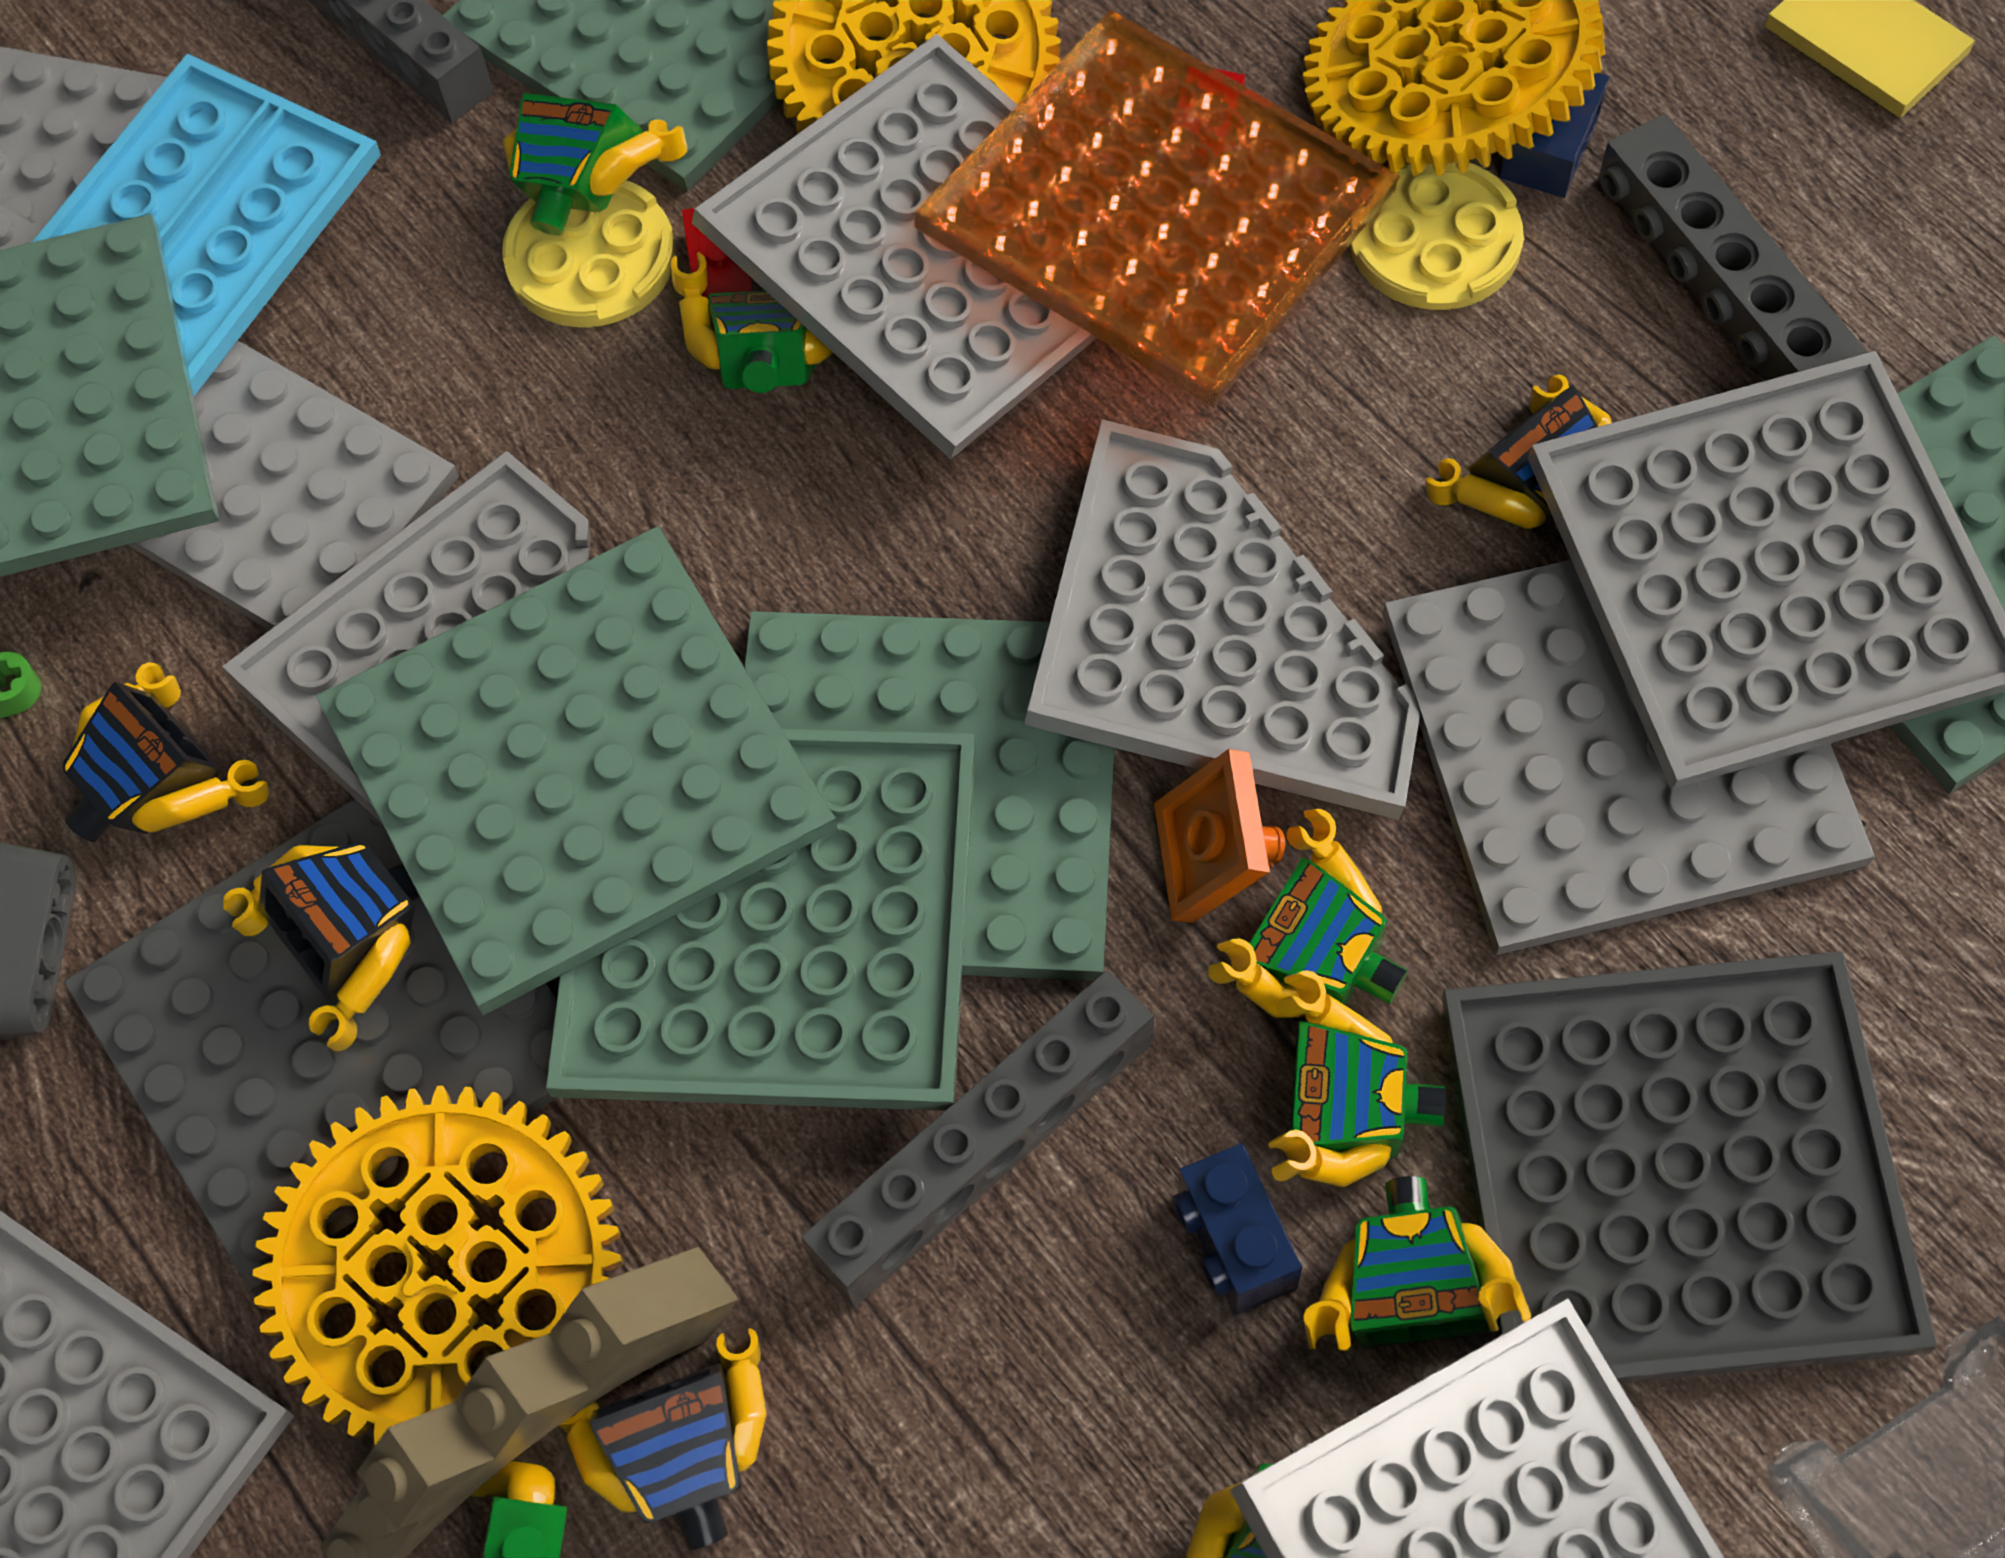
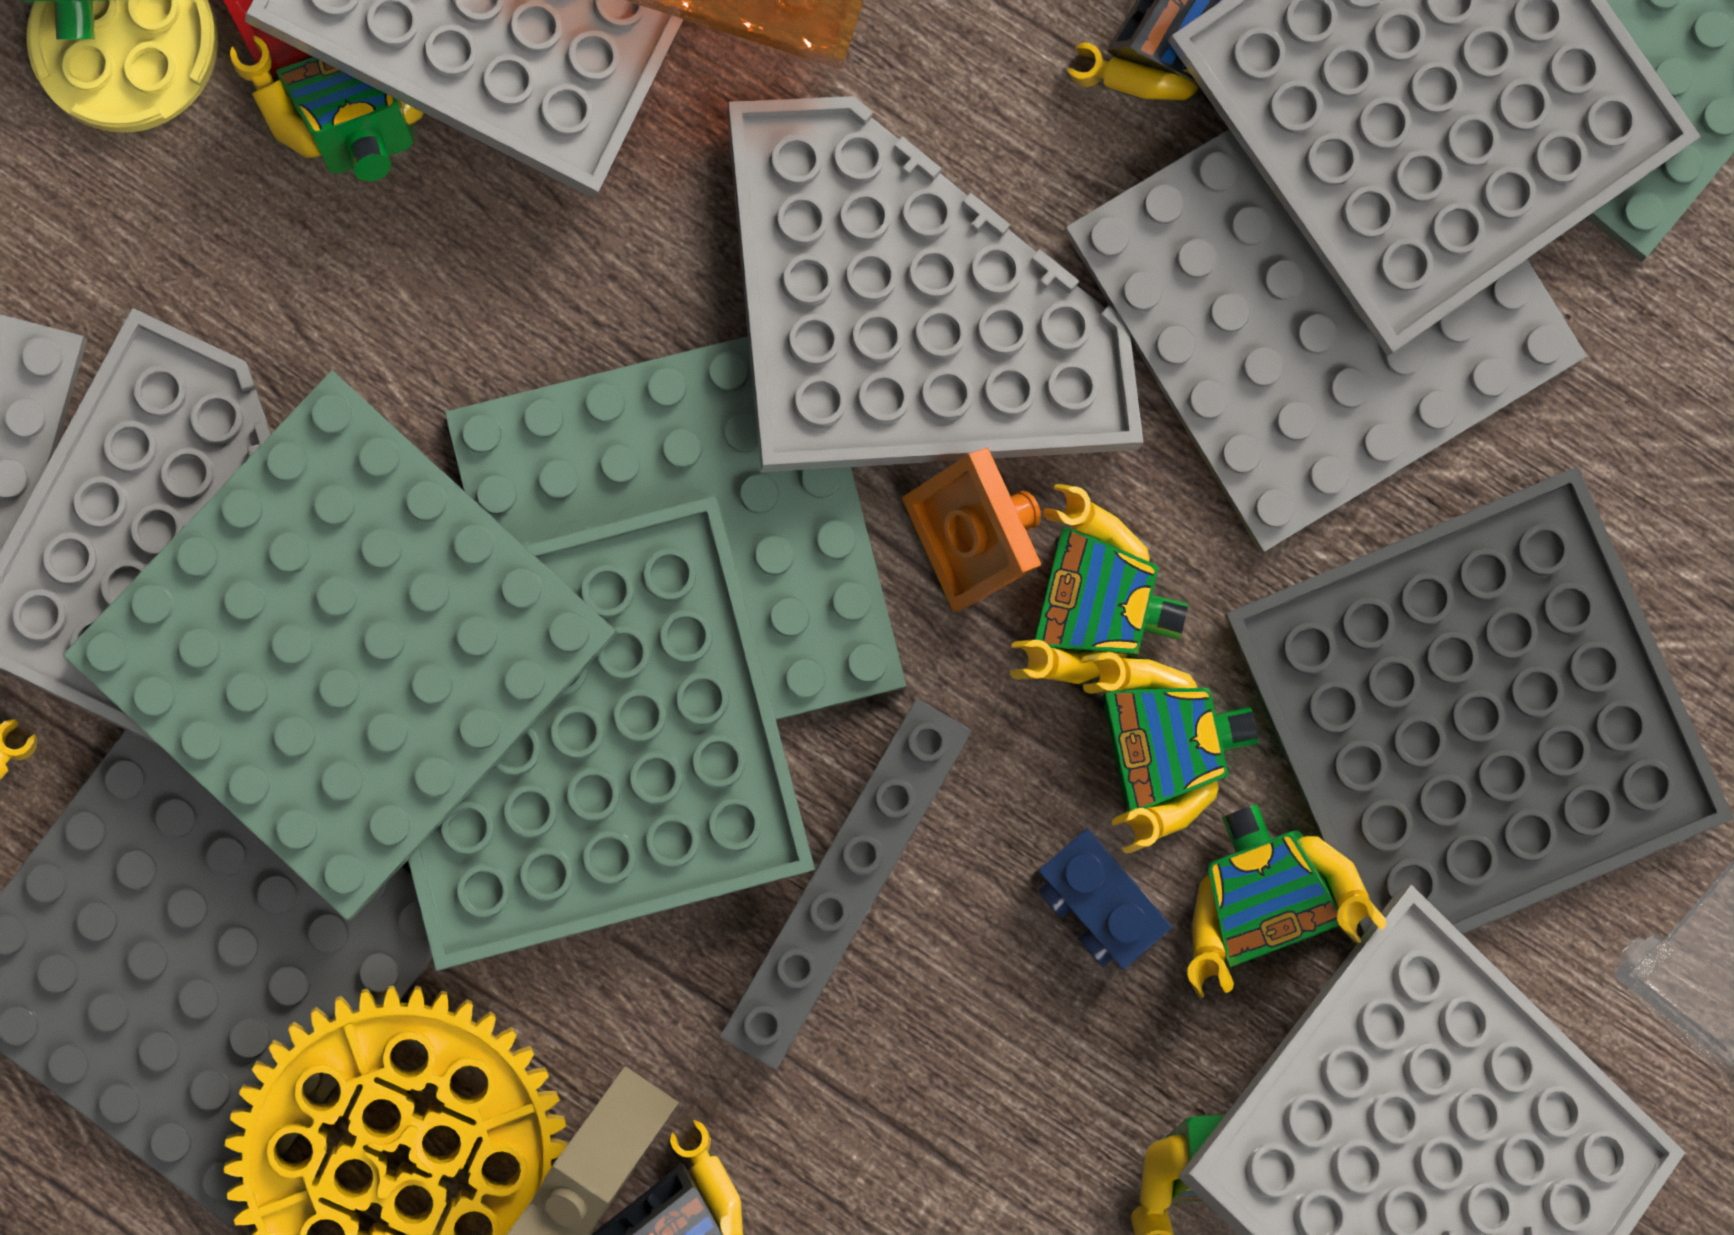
camera: 20 degrees left, 20 degrees up
(339, 920) = (176, 868): torso -> none

